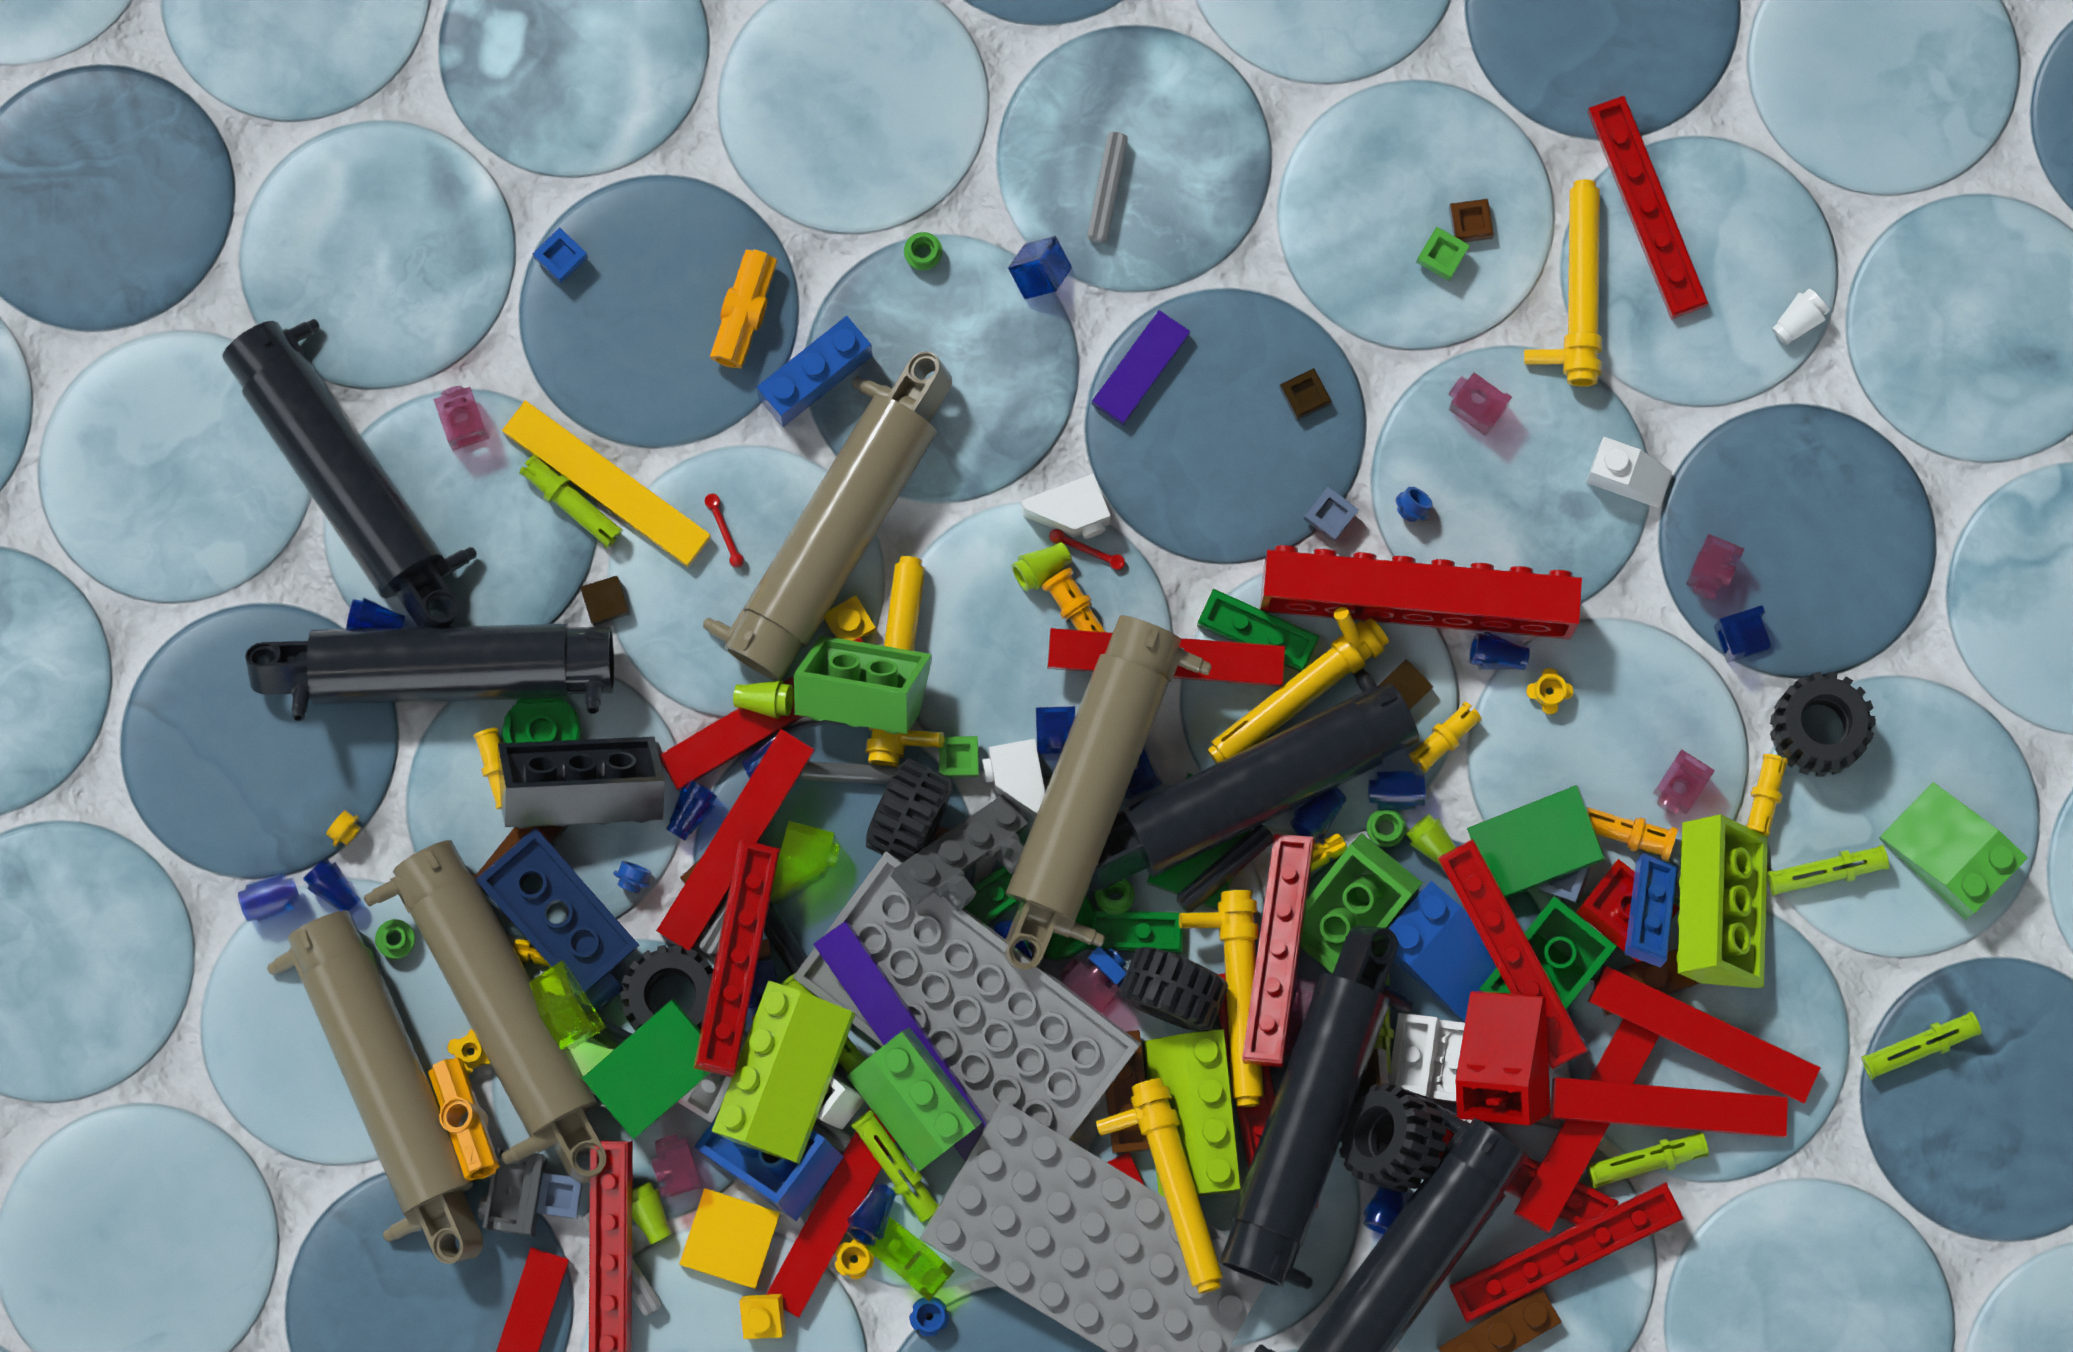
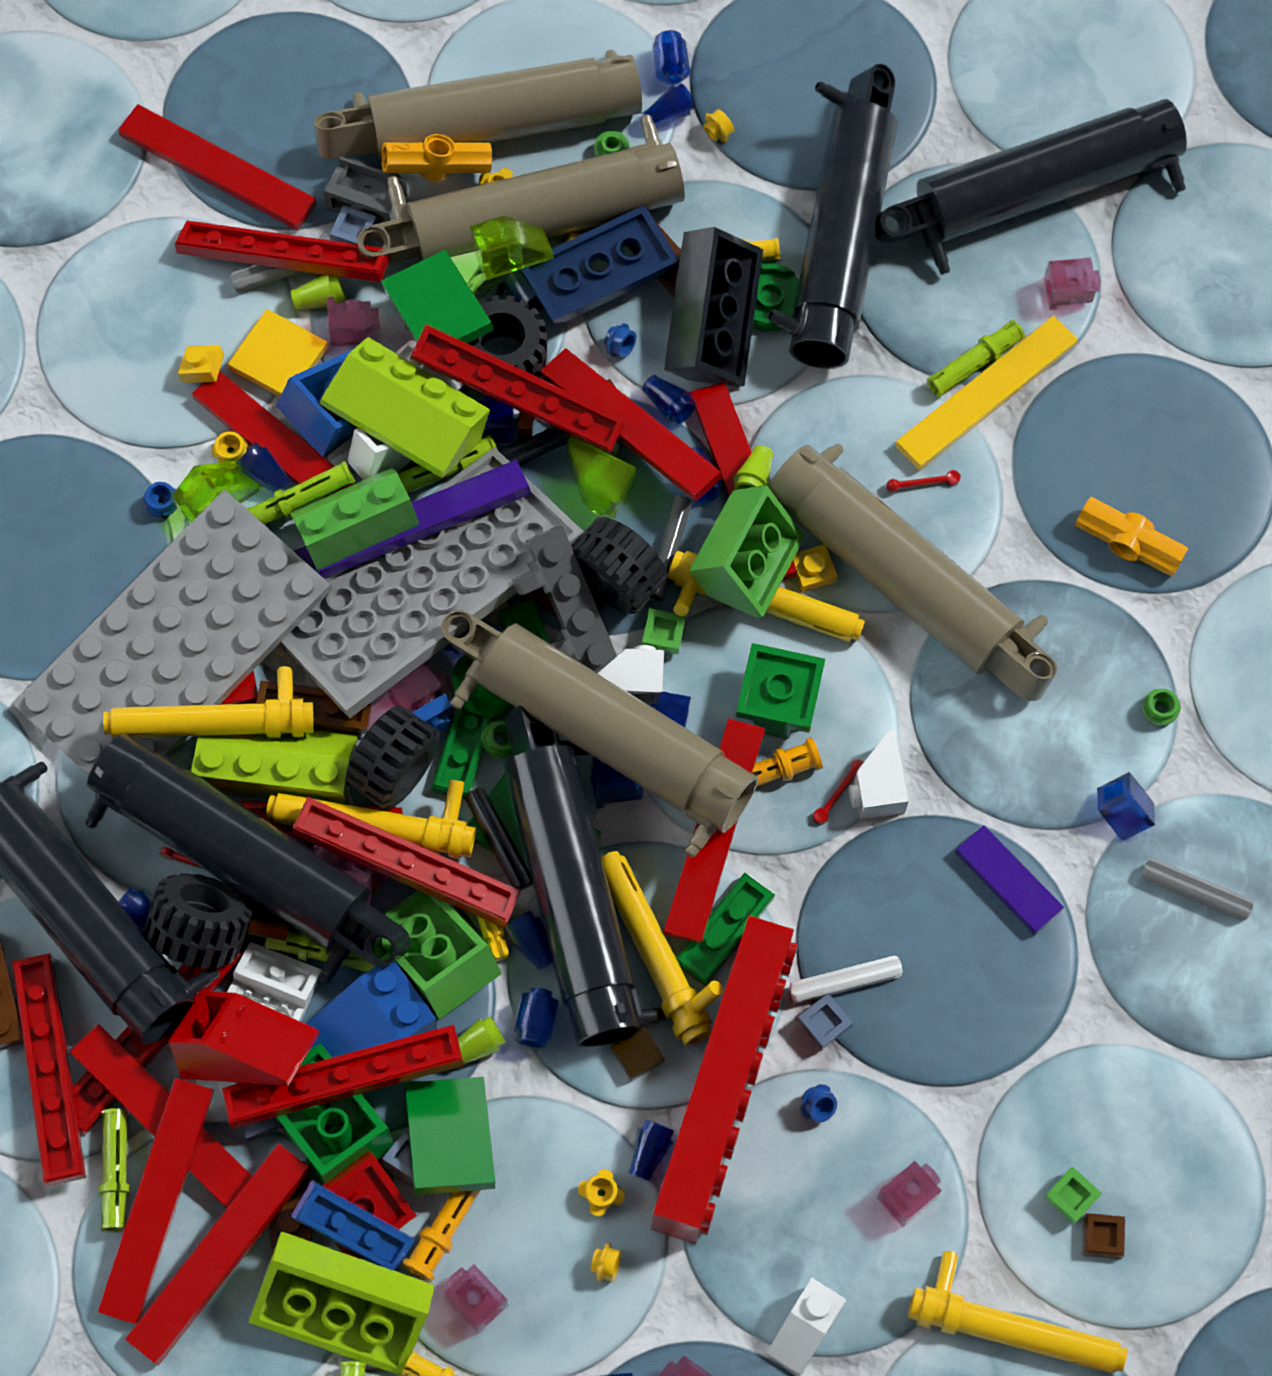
camera: 100 degrees right, 10 degrees down
(369, 614) = (901, 180): clear blue cone -> none
(560, 255) = (1210, 394): blue plate -> none
(604, 600) = (878, 370): dark brown tile -> none
(814, 371) = (1059, 582): blue brick -> none
(1001, 623) = (780, 690): none -> green panel
(1039, 566) = (831, 742): lime cone -> none
(1281, 502) = (845, 979): none -> white axle
(1305, 394) = (952, 1029): dark brown tile -> none
(1394, 819) = (498, 991): bright green plate -> none
(1445, 737) = (578, 1078): yellow pin -> none
(1616, 670) = (606, 1263): none -> yellow plate

